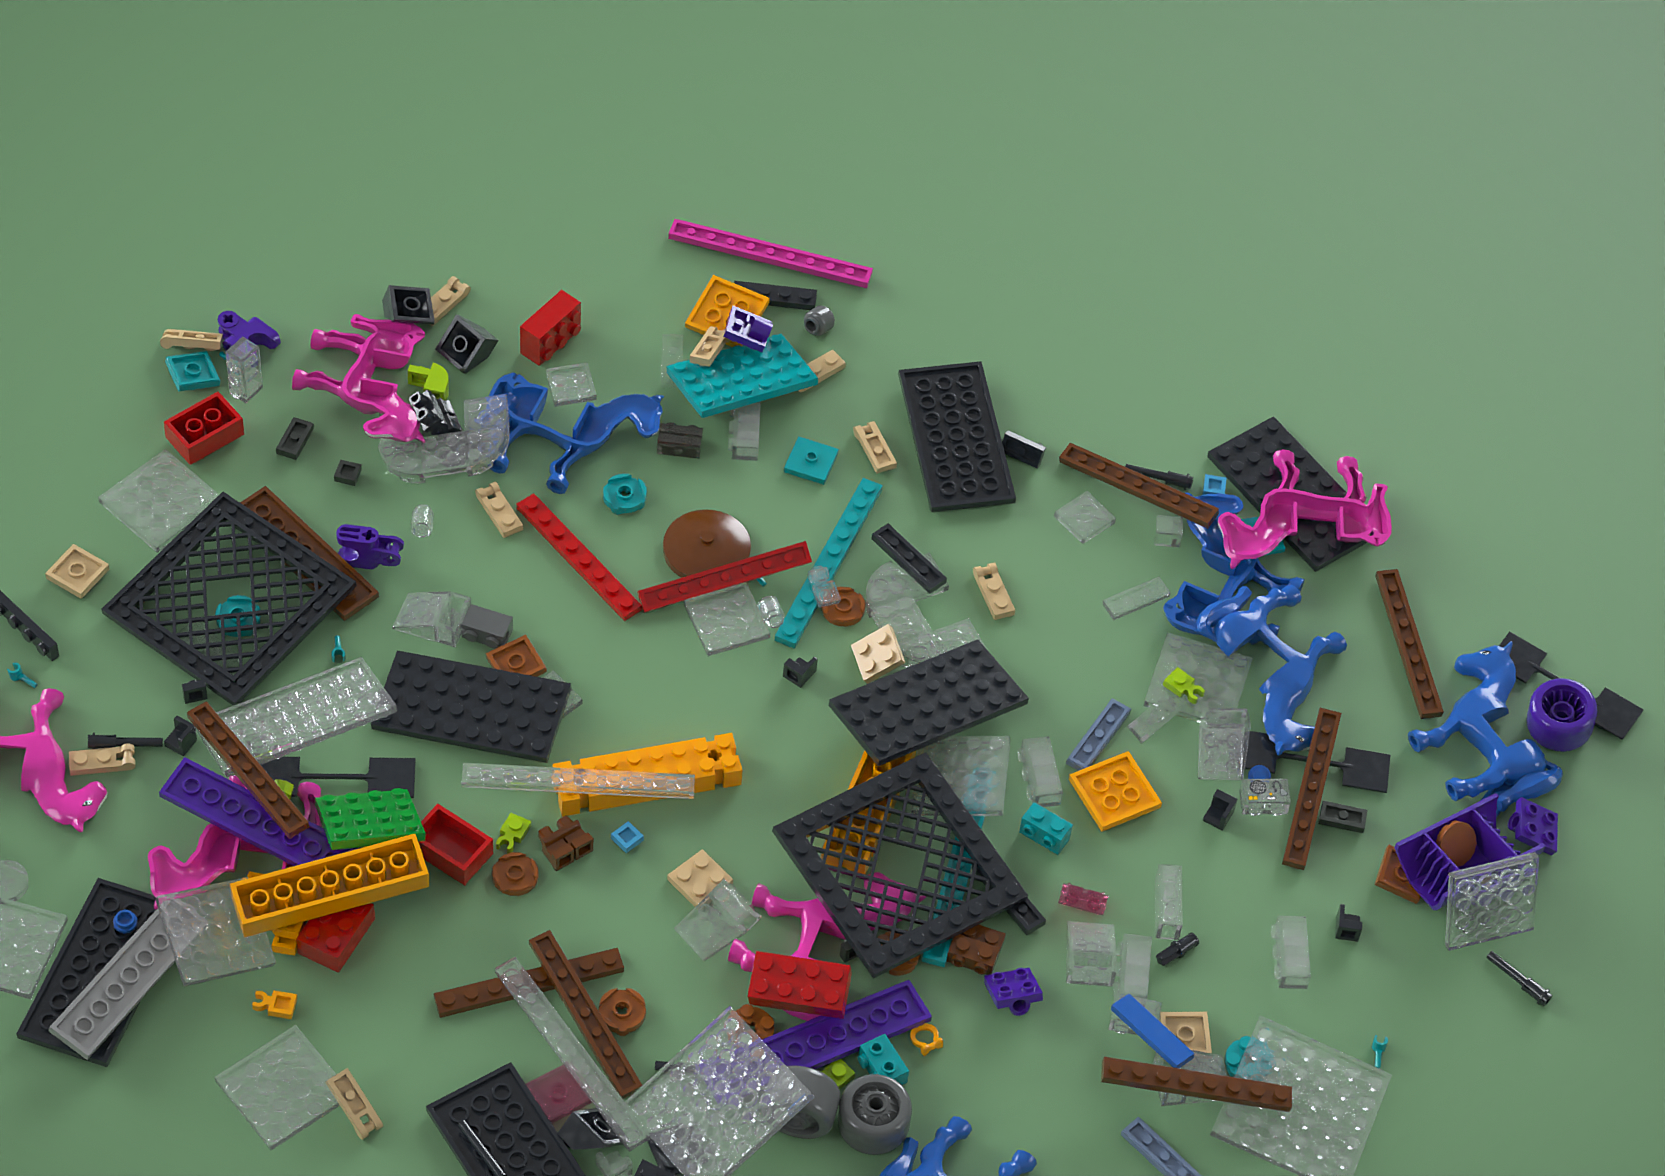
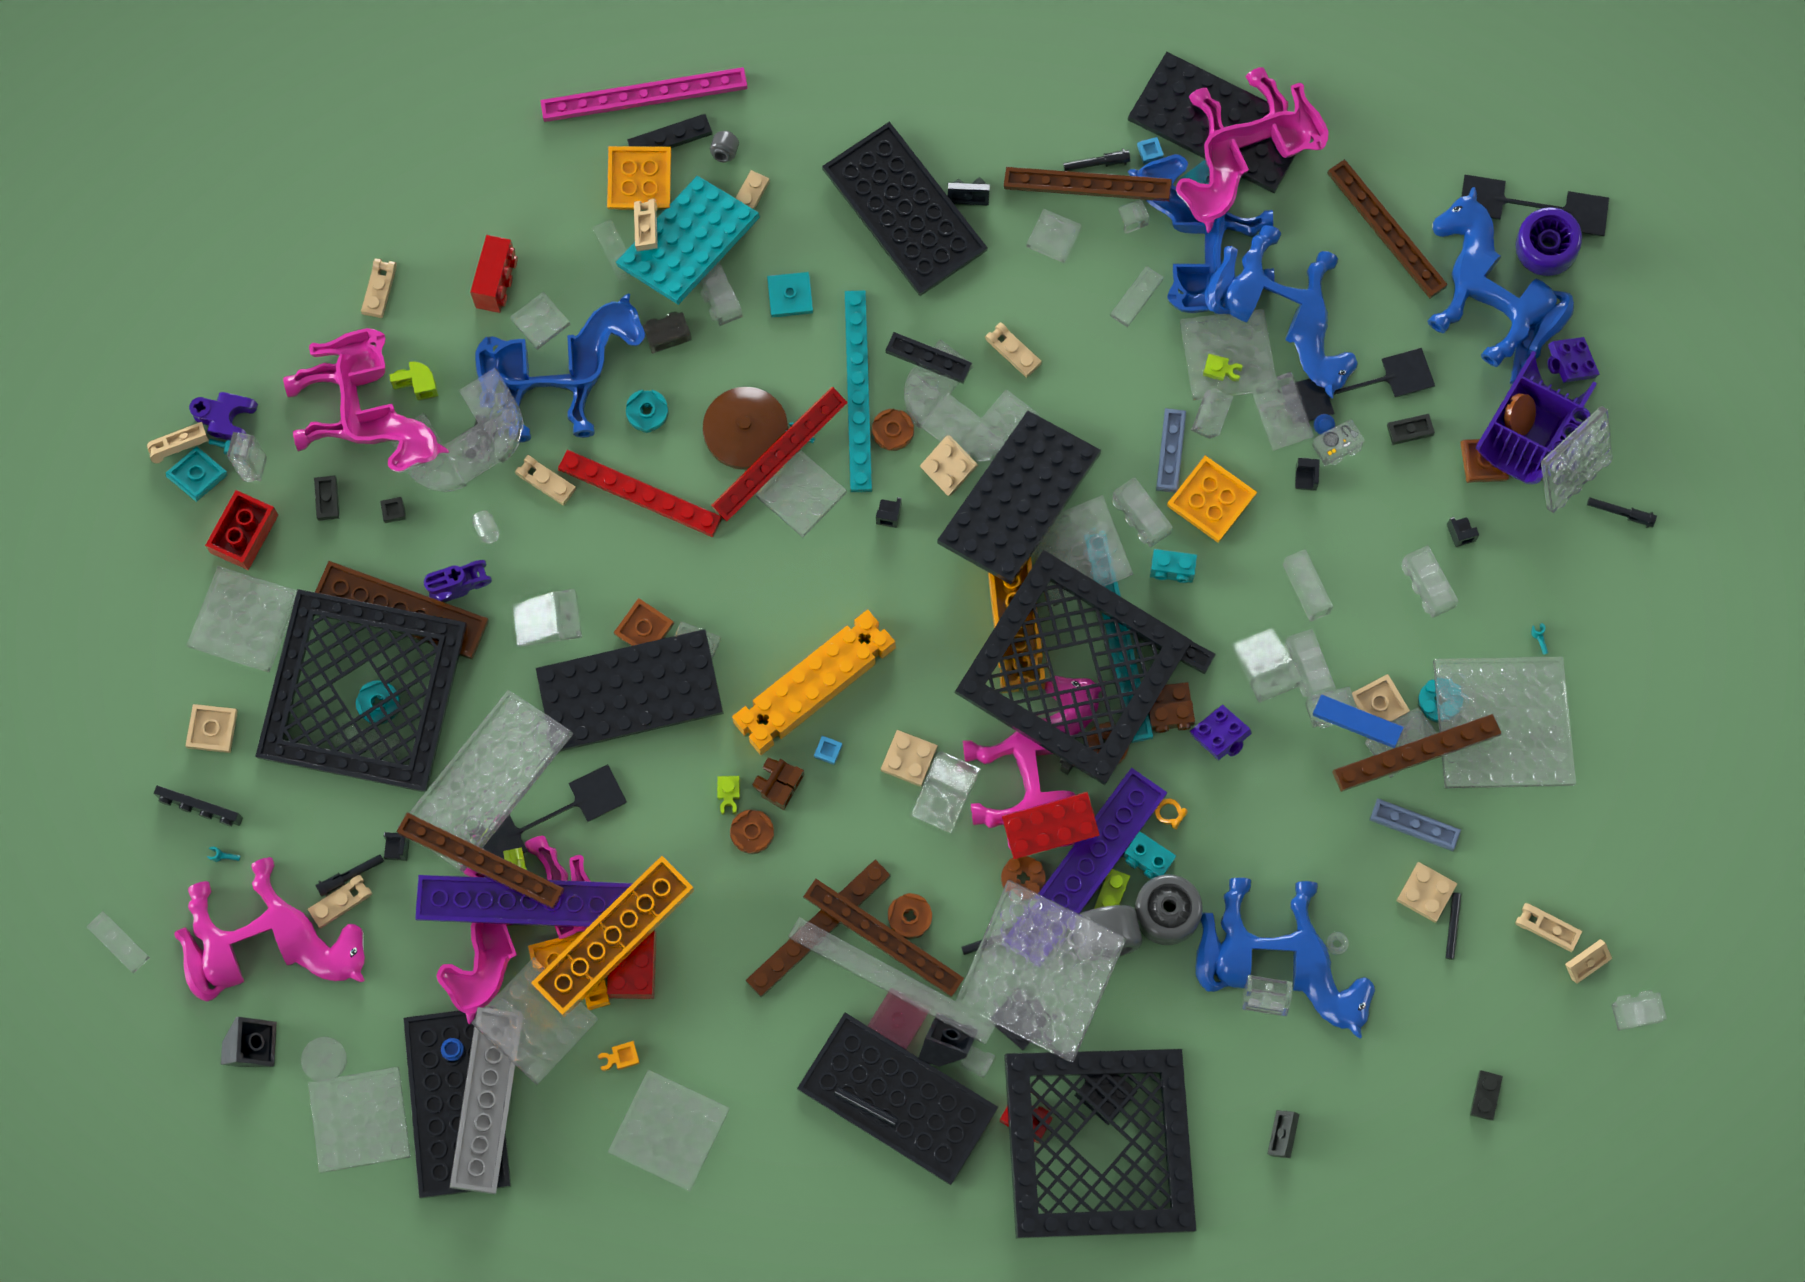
camera: 20 degrees left, 20 degrees up
(194, 691) = (382, 795): black plate -> none
(338, 650) = (481, 689): teal hand -> none
(354, 1103) = (736, 1117): tan plate -> none
(368, 818) = (608, 852): green plate -> none
(408, 305) = (353, 313): black slope -> none
(434, 414) = (444, 418): black hips -> none
(454, 844) = (686, 835): red piece -> none
(466, 344) = (425, 325): black slope -> none
(486, 626) = (600, 606): dark grey brick -> none
(578, 780) = (764, 725): clear plate -> none
(747, 329) = (670, 191): dark purple plate -> none
(771, 611) = (836, 468): clear brick -> none
(824, 591) = (873, 427): clear plate -> none
(875, 447) = (839, 254): tan plate -> none
(1083, 899) = (1235, 616): clear pink hinge -> none
(1177, 949) = (1334, 625): black axle -> none
(1311, 789) = (1374, 415): reddish brown plate -> none

